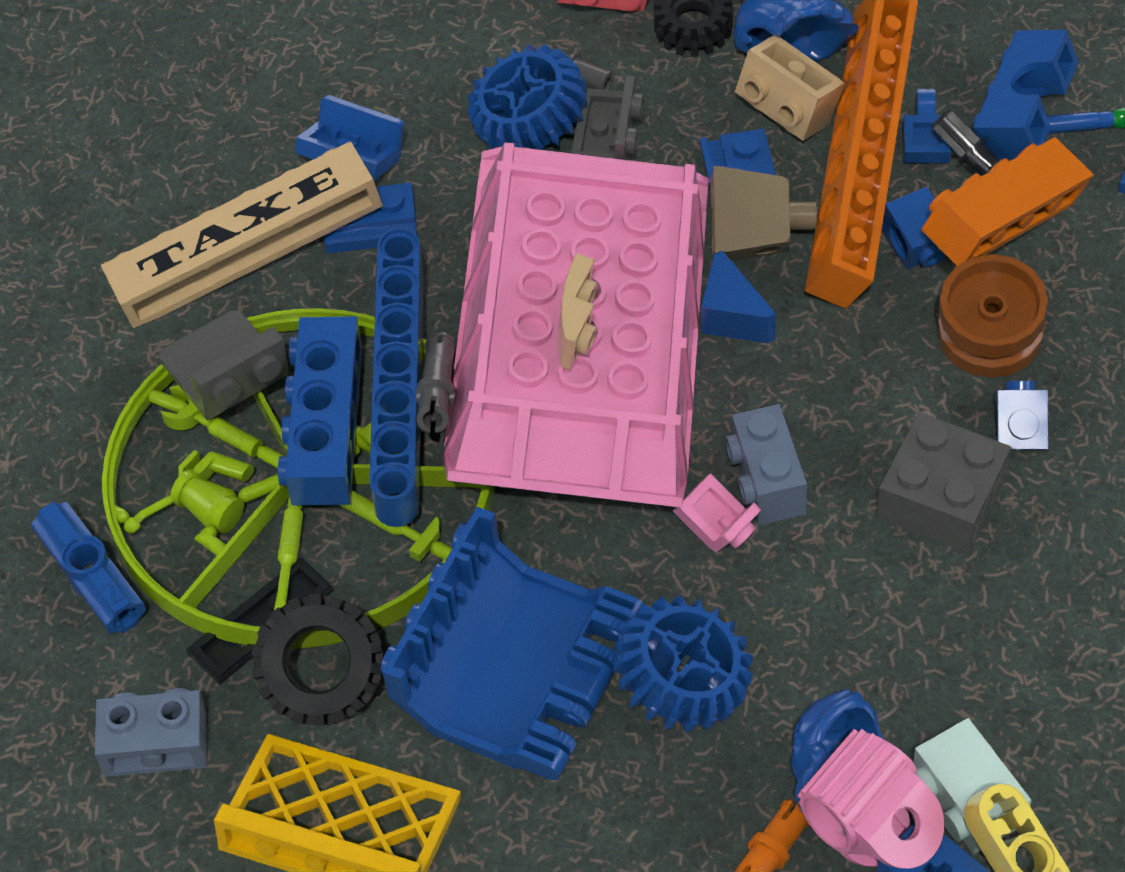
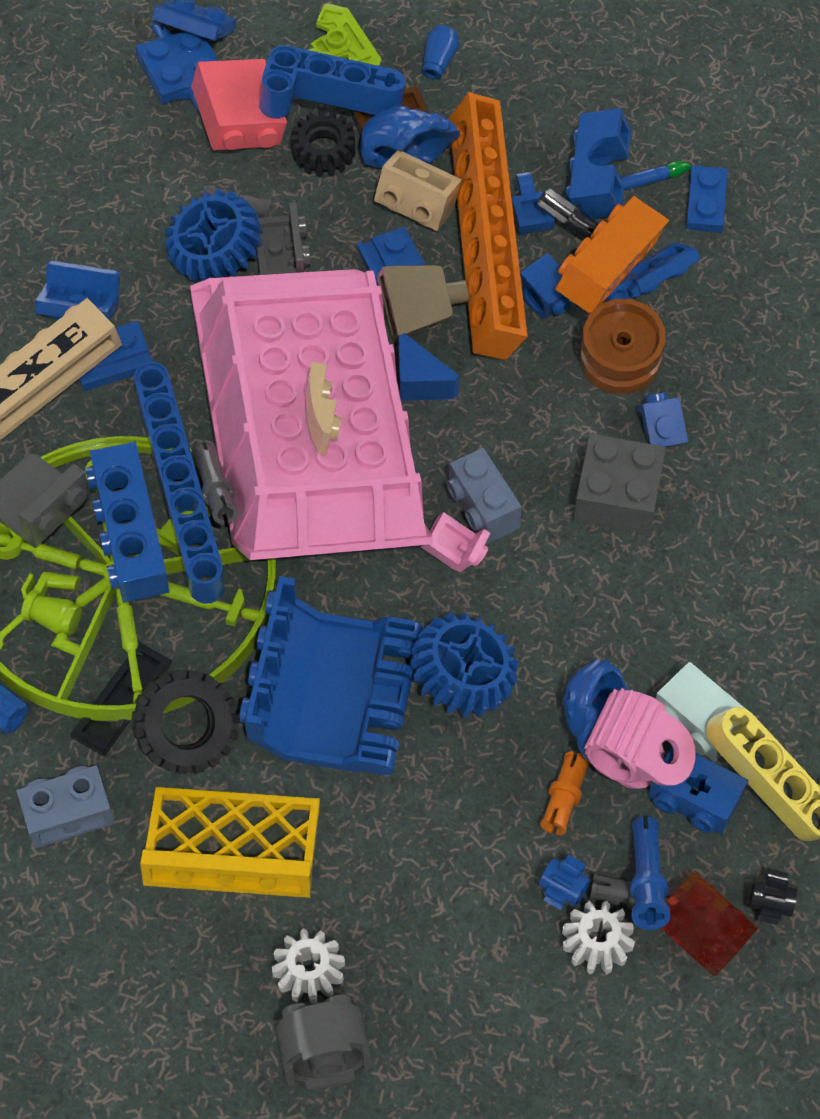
camera: 20 degrees left, 5 degrees up
(1048, 239) = (655, 269): none -> blue hinge

